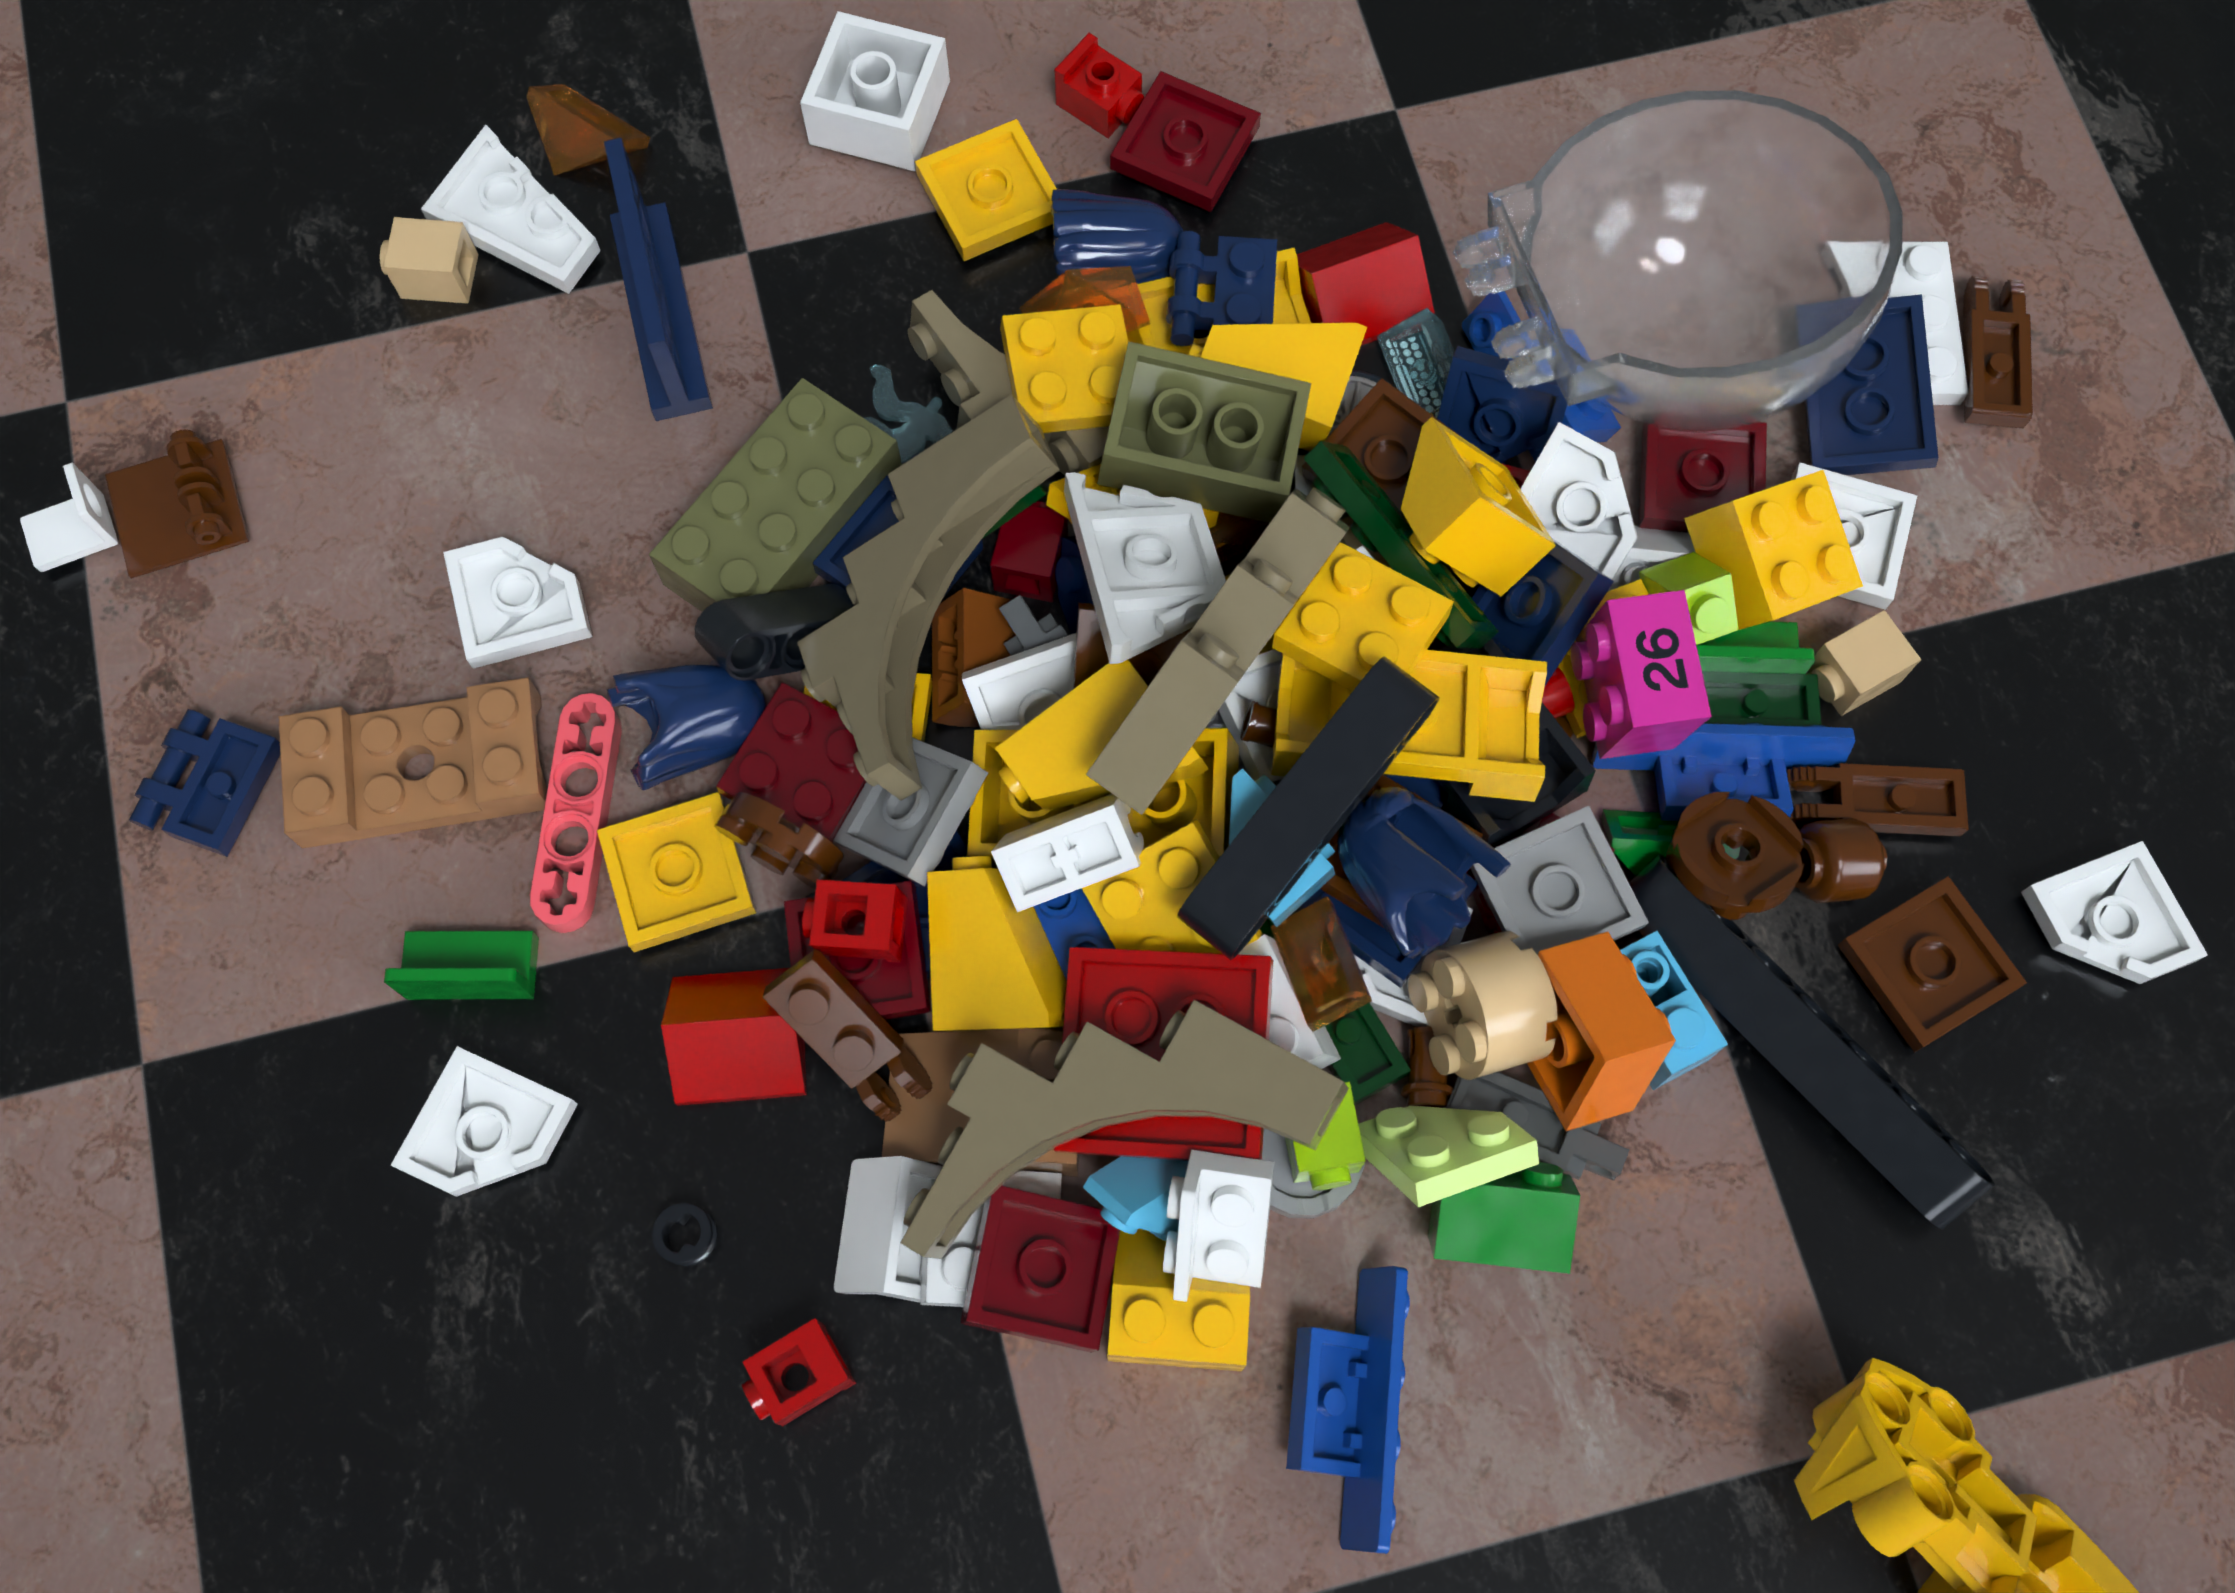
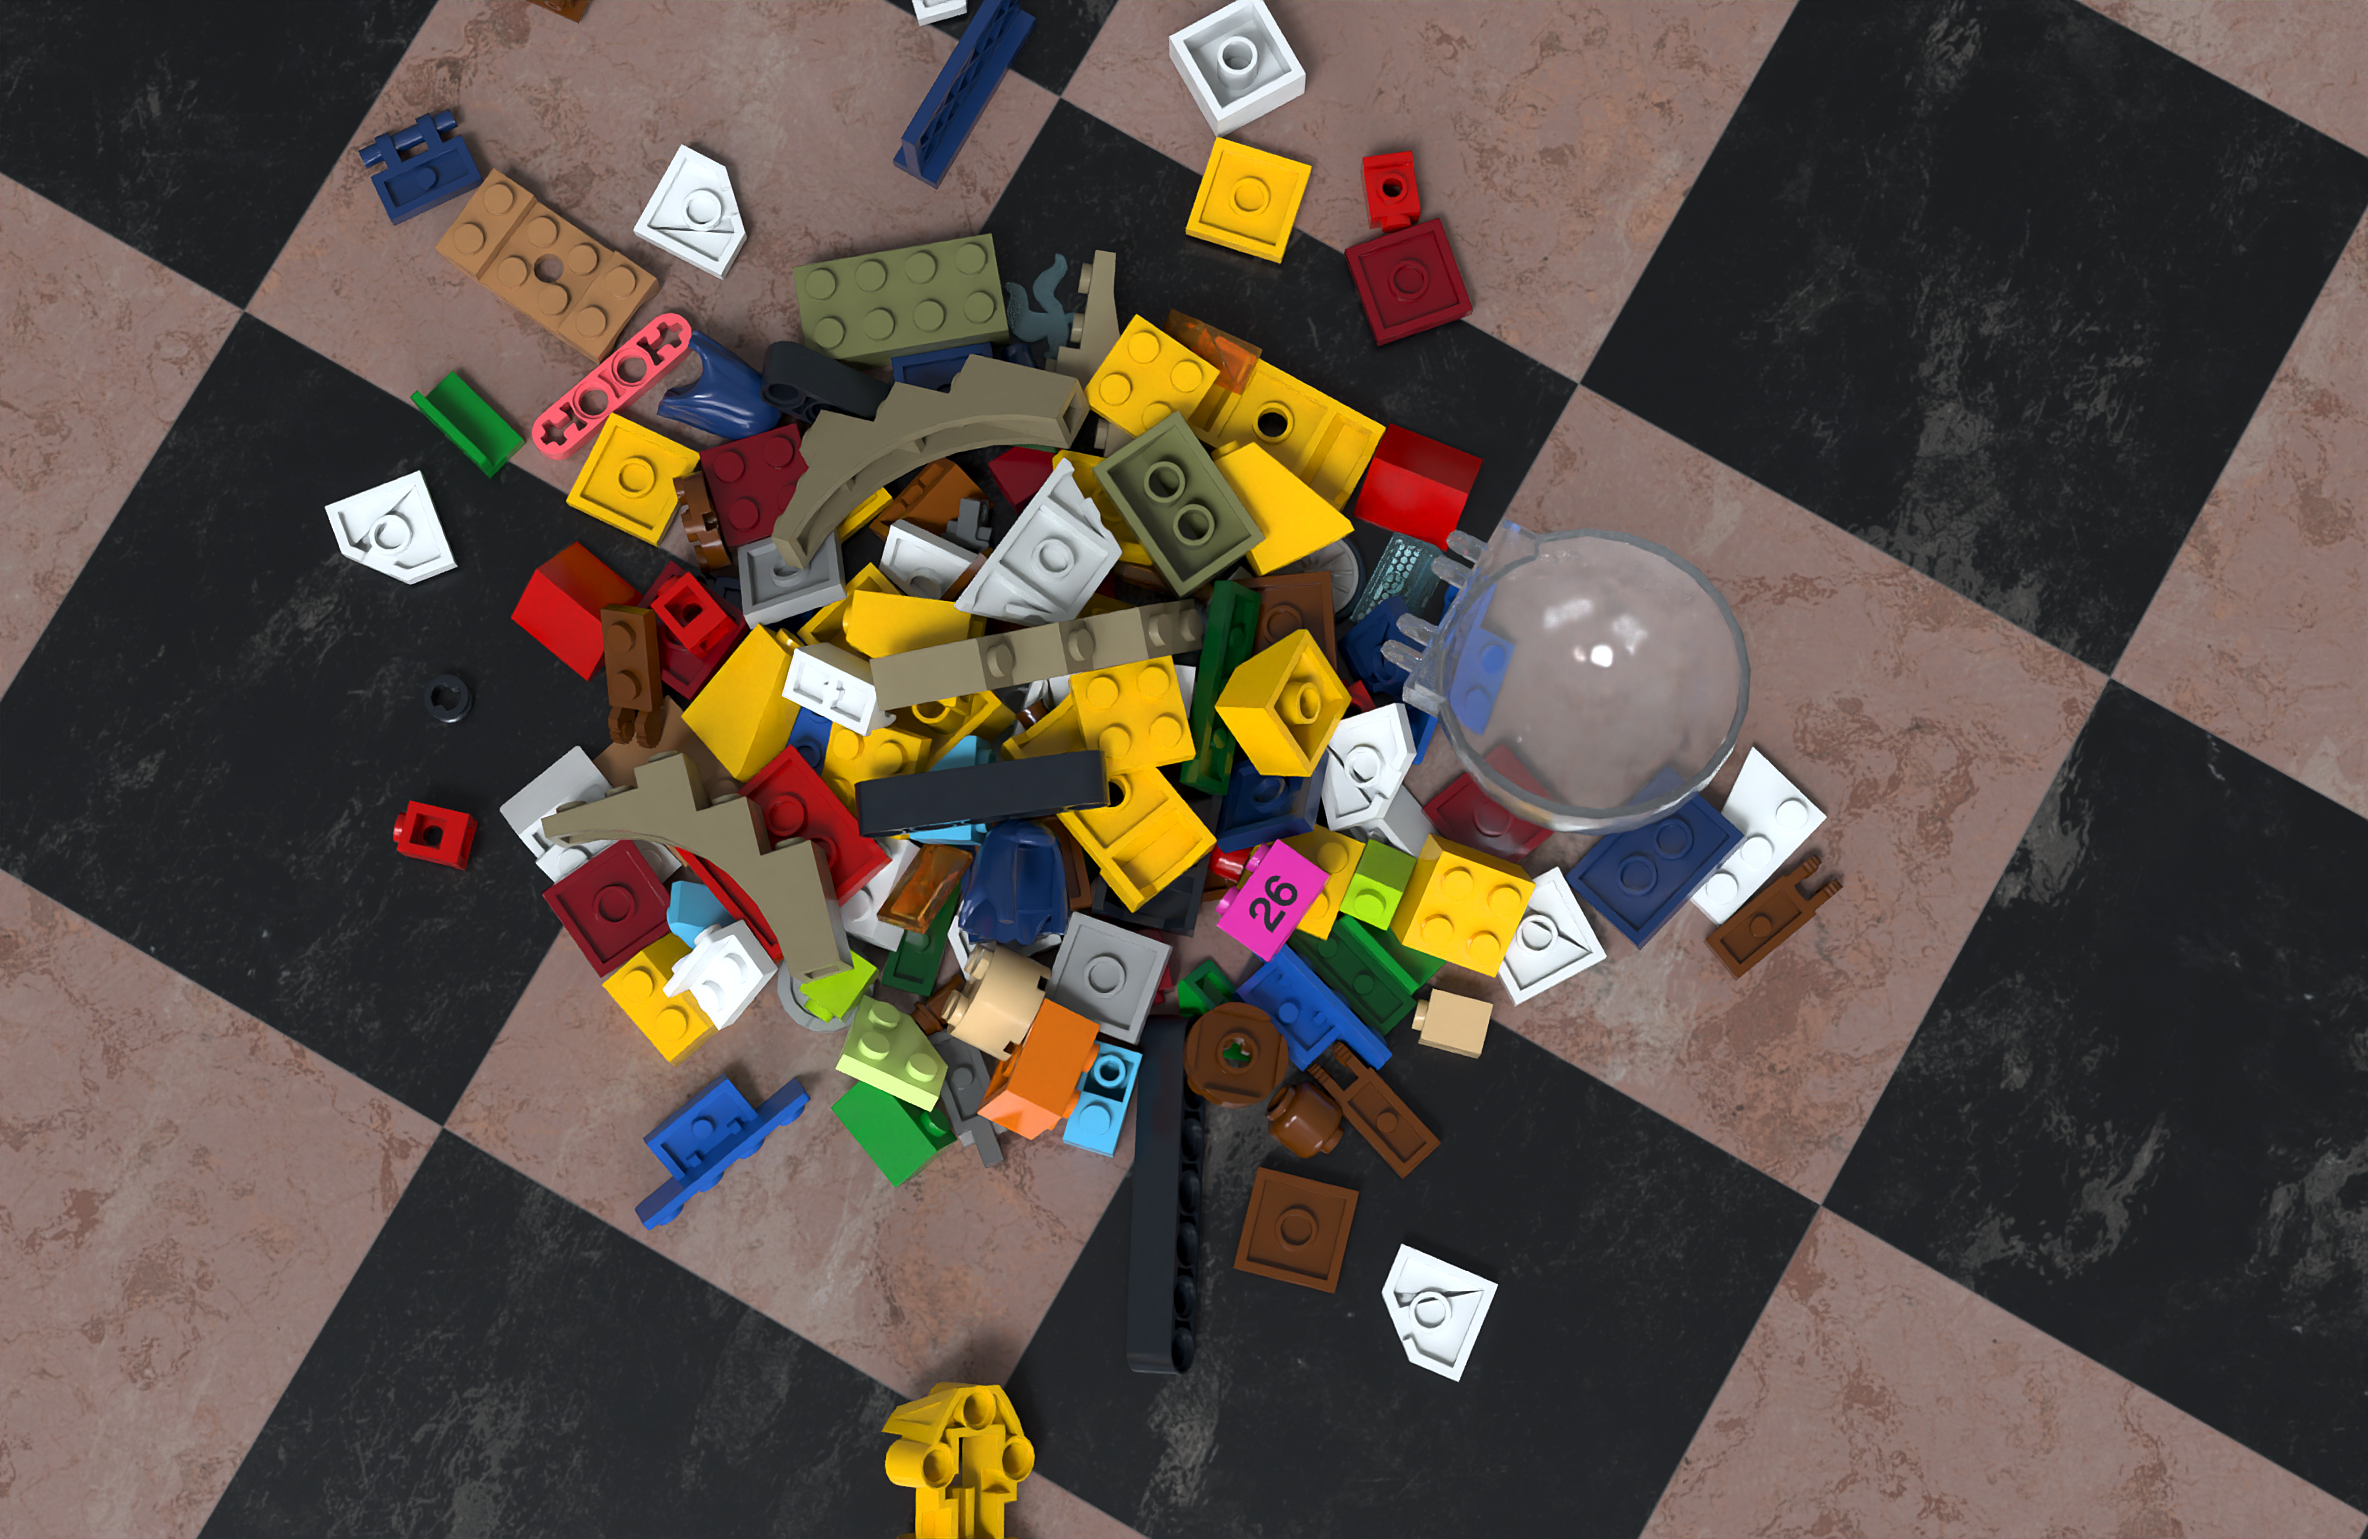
camera: 45 degrees right, 10 degrees up
(1112, 232) = (1276, 313): dark blue hair -> none
(1242, 280) = (1314, 431): dark blue plate -> none

